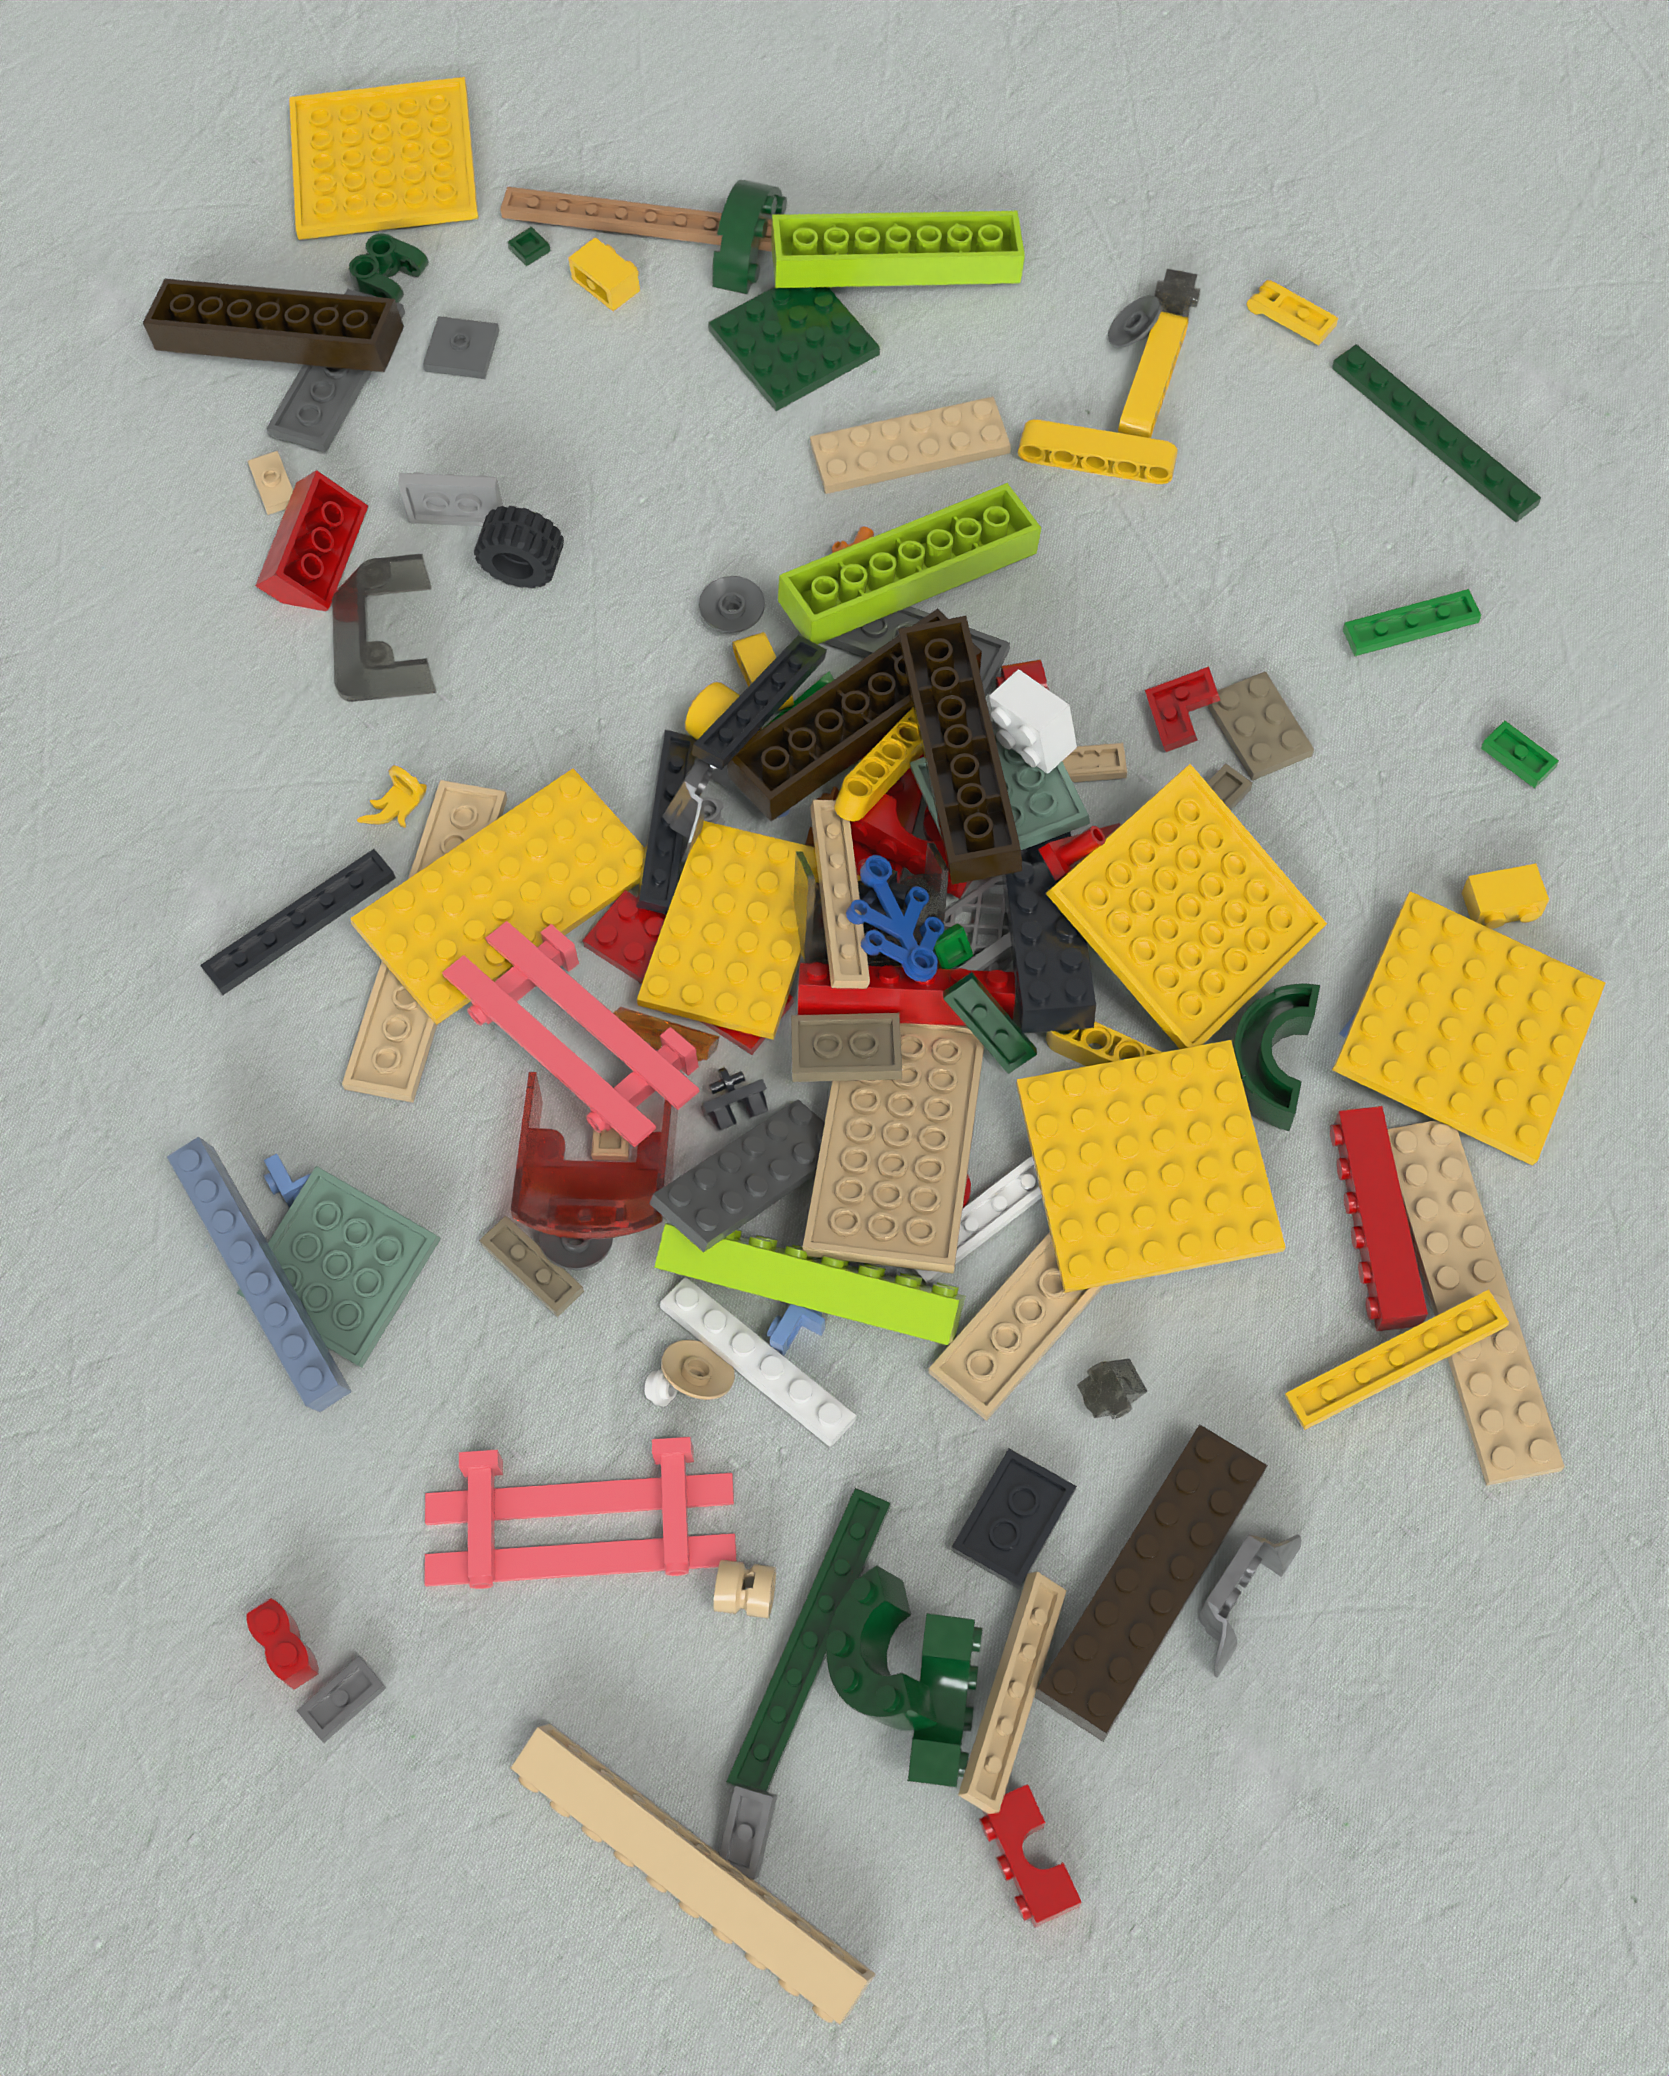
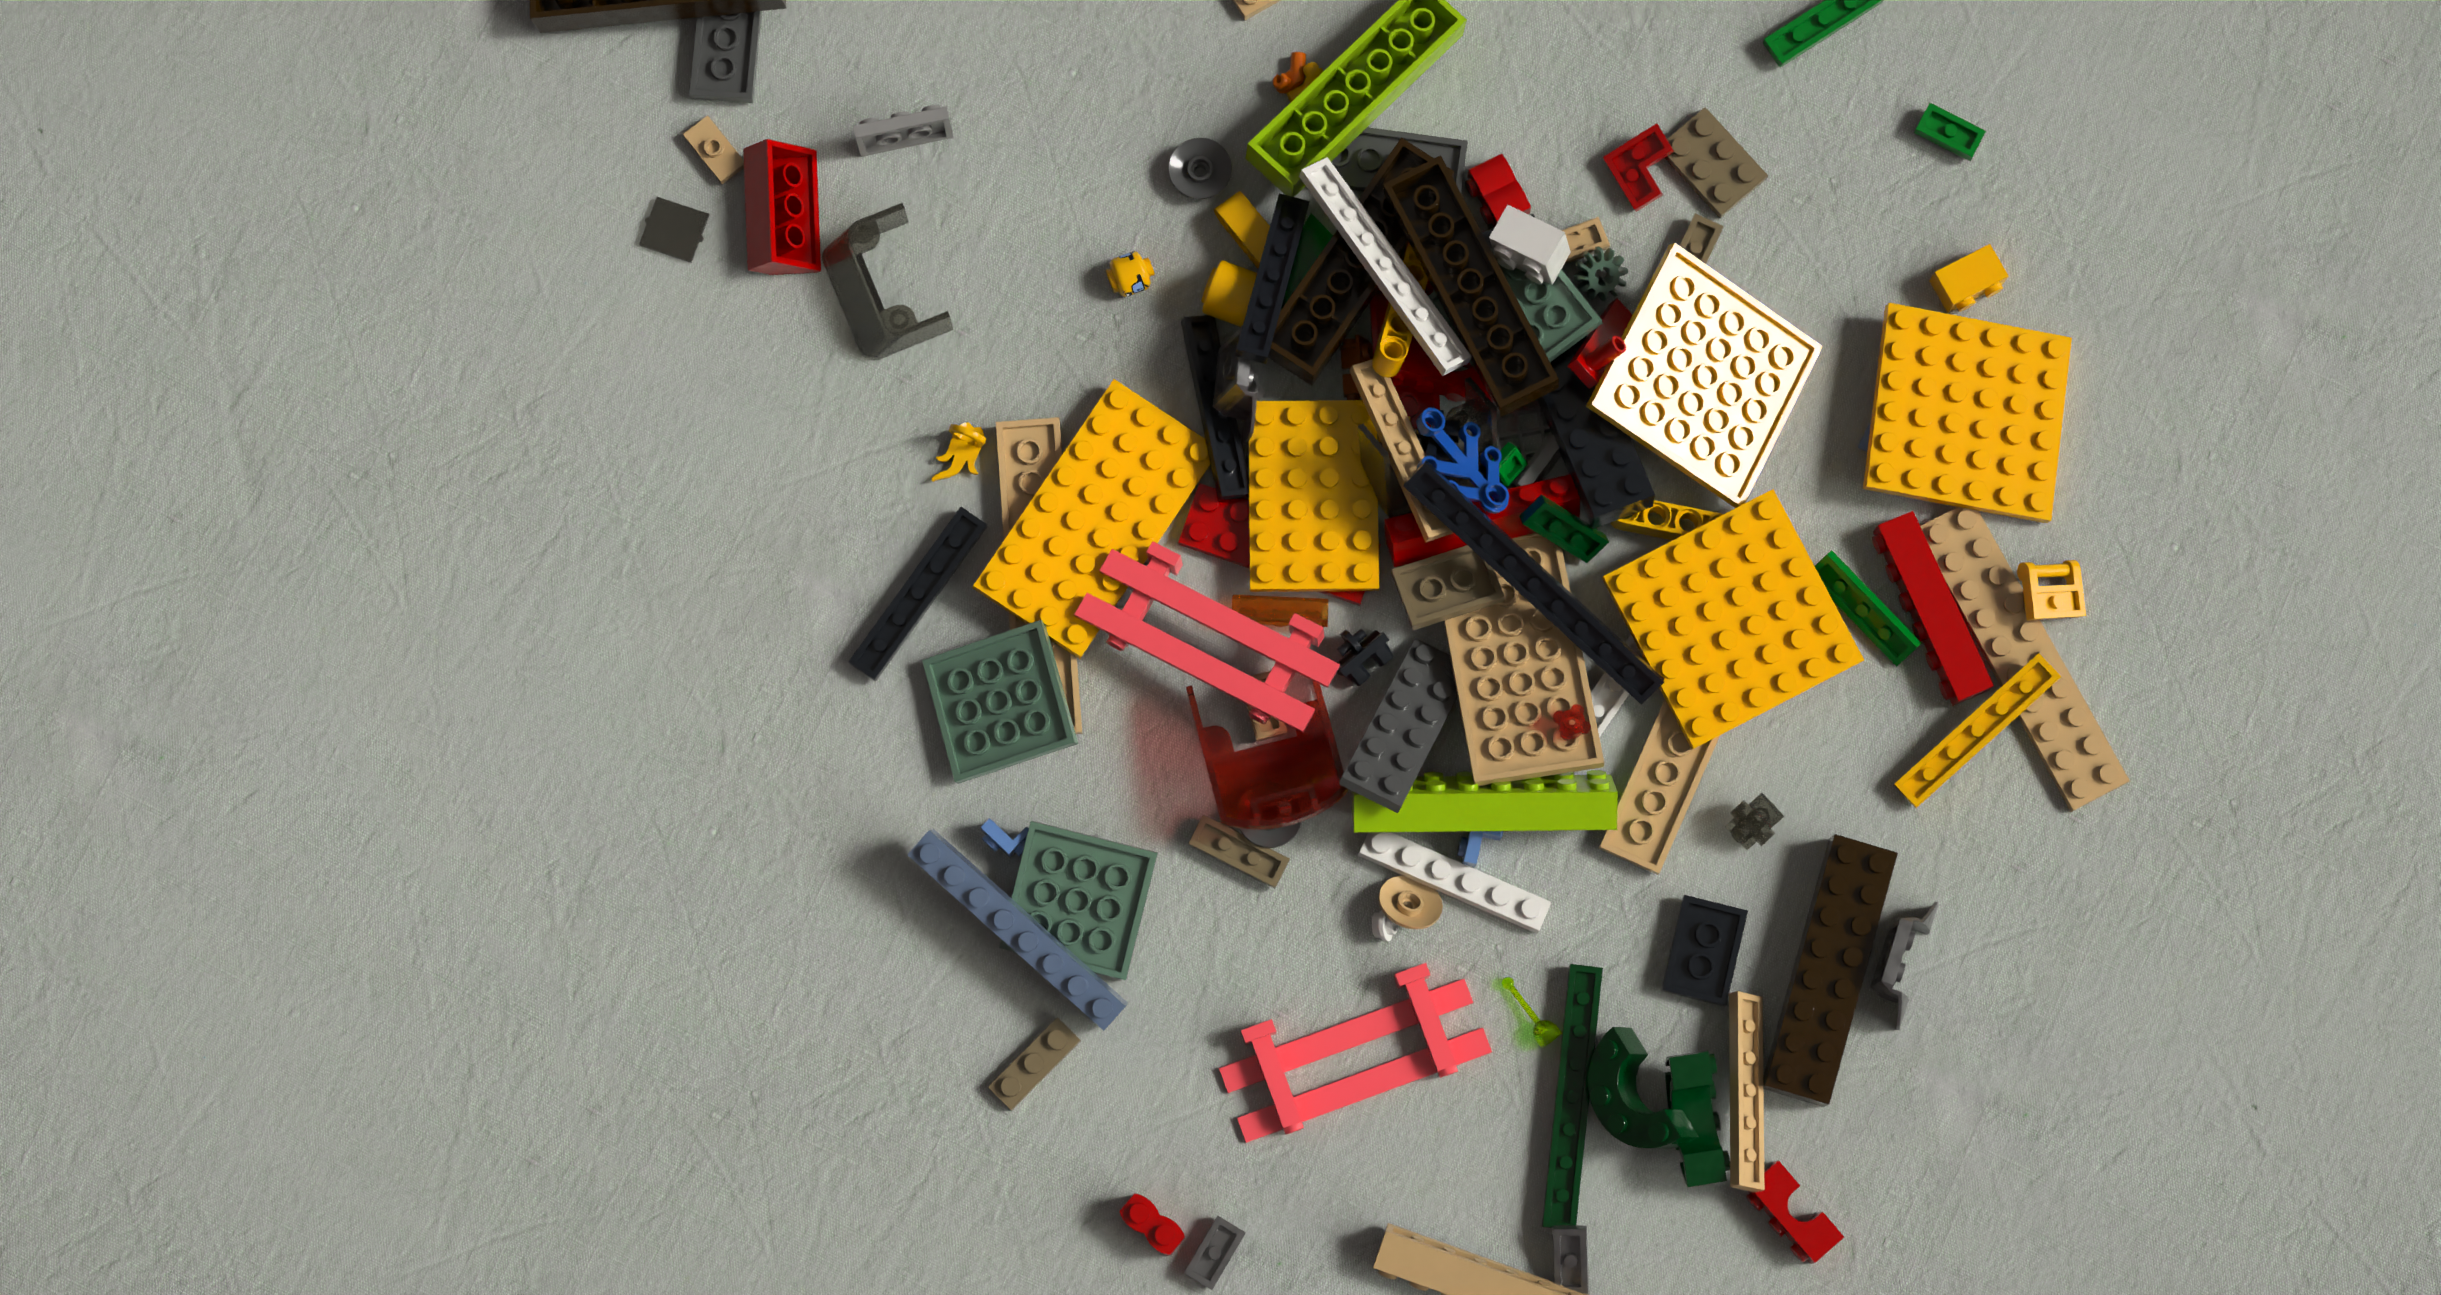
camera: 20 degrees left, 15 degrees up
(205, 541) = (674, 229): none -> clear smoke piece
(227, 1430) = (1034, 1063): none -> dark tan plate
(335, 1042) = (1000, 702): none -> sand green plate
(519, 547) = (987, 168): black tyre -> none
(627, 681) = (1129, 274): none -> yellow head
(731, 1593) = (1497, 1076): tan wheel -> none
(803, 1556) = (1544, 1030): none -> clear neon green hinge
(878, 714) = (1385, 266): none -> white plate
(931, 1222) = (1569, 731): none -> clear red plate
(936, 1060) = (1533, 582): none -> black plate
(1120, 793) = (1600, 286): none -> sand green gear
(1278, 1015) = (1789, 479): dark green brick -> none
(1303, 1199) = (1866, 609): none -> green plate
(1519, 1243) = (2055, 600): none -> yellow plate

